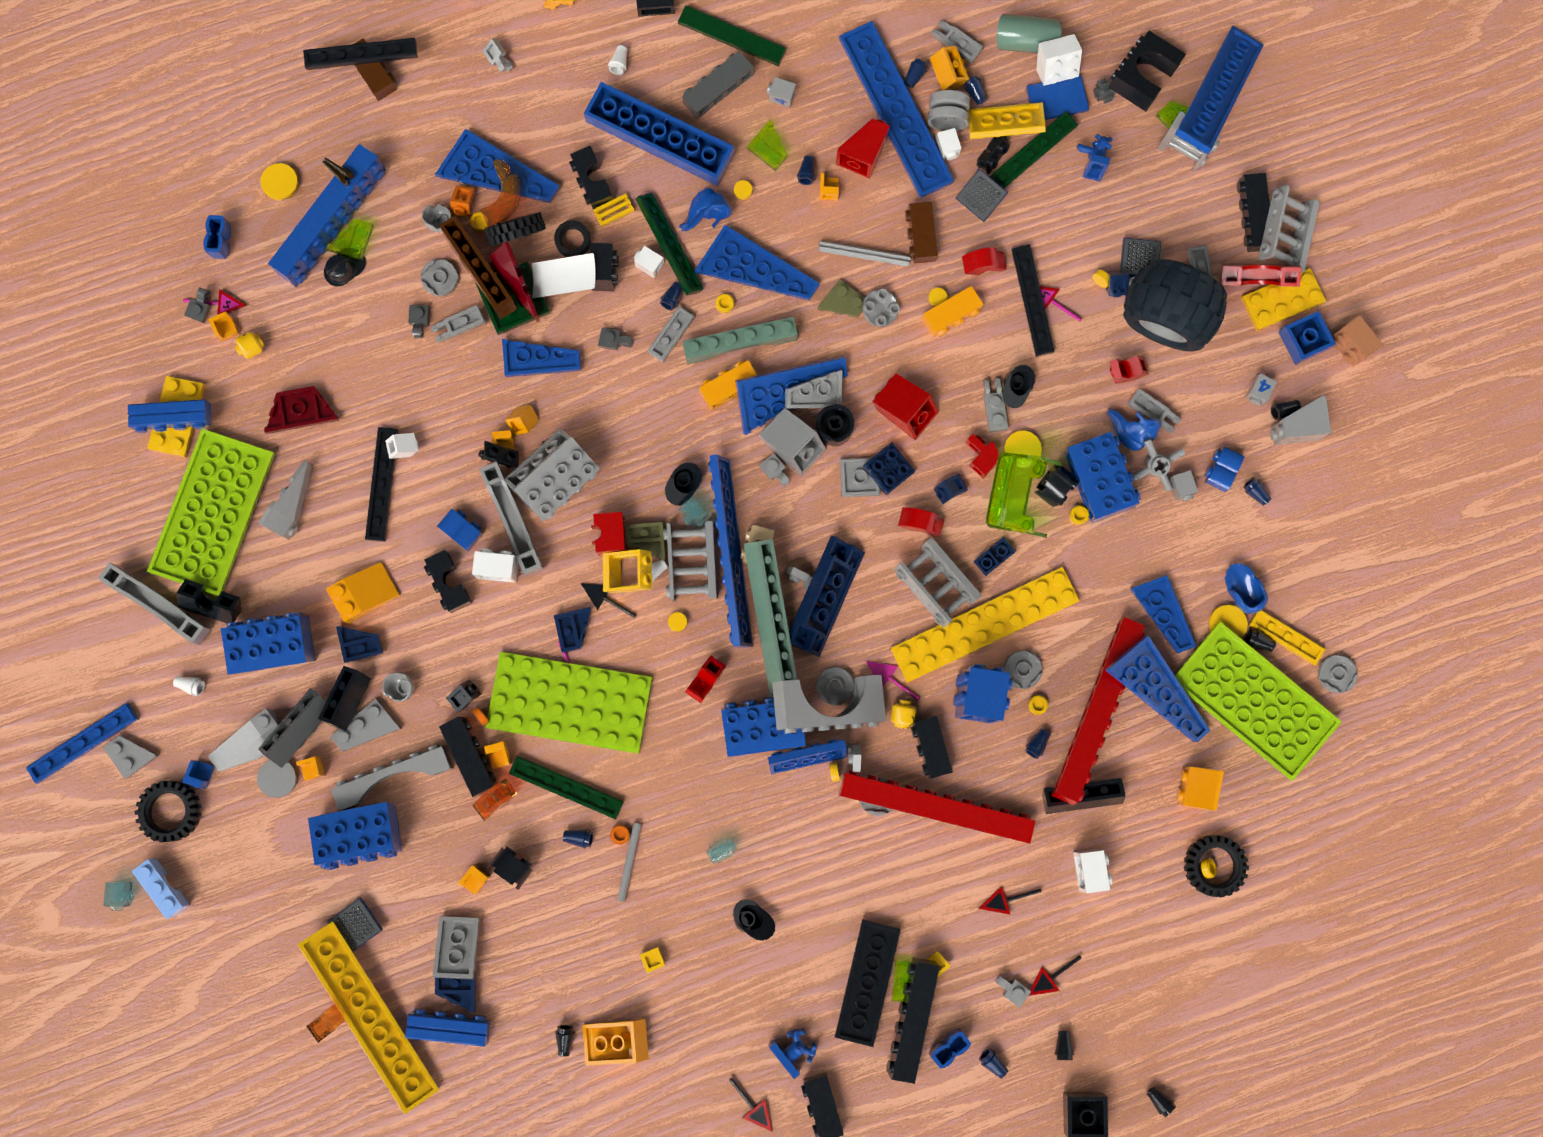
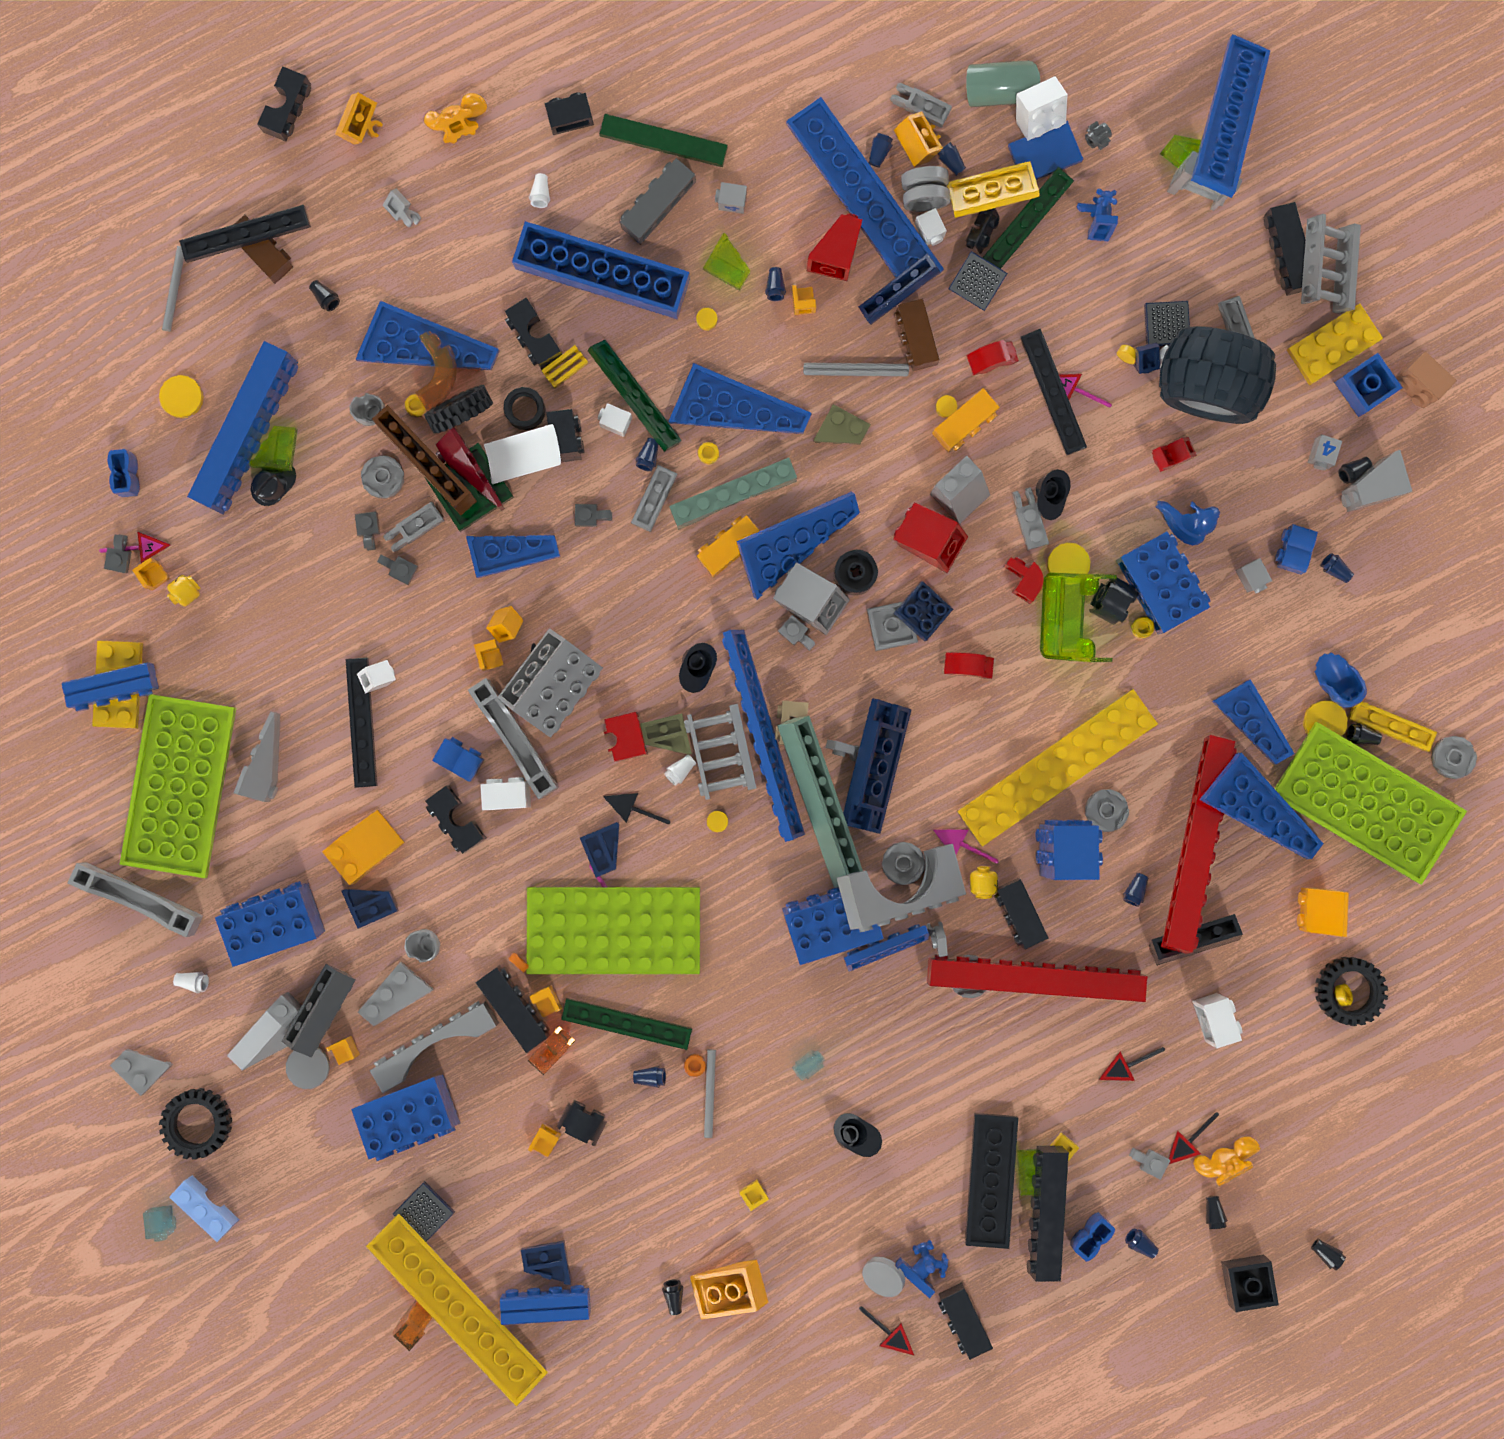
camera: 10 degrees left, 5 degrees up
(82, 743) = (86, 1064): blue tile -> none
(193, 598) = (179, 886): black arch -> none
(198, 774) = (221, 1077): blue panel -> none
(290, 92) = (173, 290): none -> light grey bar
(299, 409) = (253, 654): dark red wing -> none
(340, 172) = (249, 378): dark brown piece -> none
(344, 698) = (365, 969): black brick -> none
(419, 119) = (326, 297): none -> black cone
(440, 359) = (400, 569): none -> dark grey plate
(456, 947) = (538, 1218): light grey plate -> none
(461, 201) = (391, 384): orange bracket -> none
(463, 695) = (496, 942): black bracket -> none
(500, 454) = (487, 668): black hinge -> none
(612, 571) = (634, 769): yellow window -> none
(693, 513) = (714, 698): clear light blue brick -> none
(705, 679) = (760, 881): red brick -> none
(707, 205) = (670, 343): blue piece -> none
(756, 1053) = (883, 1277): none -> light grey tile
(816, 392) = (828, 539): light grey wing -> none
(834, 770) = (918, 958): yellow tile -> none
(880, 308) = (884, 429): light grey dish -> none
(912, 191) = (899, 289): none -> dark blue brick
(938, 369) = (961, 490): none -> light grey slope
(950, 488) = (995, 622): dark blue bracket -> none
(952, 573) = (1017, 723): light grey fence -> none
(994, 556) = (1056, 690): dark blue slope -> none
(1037, 705) = (1129, 846): yellow tile -> none
(1083, 1003) = (1227, 1162): none -> light orange animal
(1151, 51) = (1125, 121): black arch -> none
(1151, 408) = (1206, 494): light grey hinge -> none
(1163, 469) = (1219, 562): light grey bar -> none
(1261, 274) = (1322, 318): arch -> none

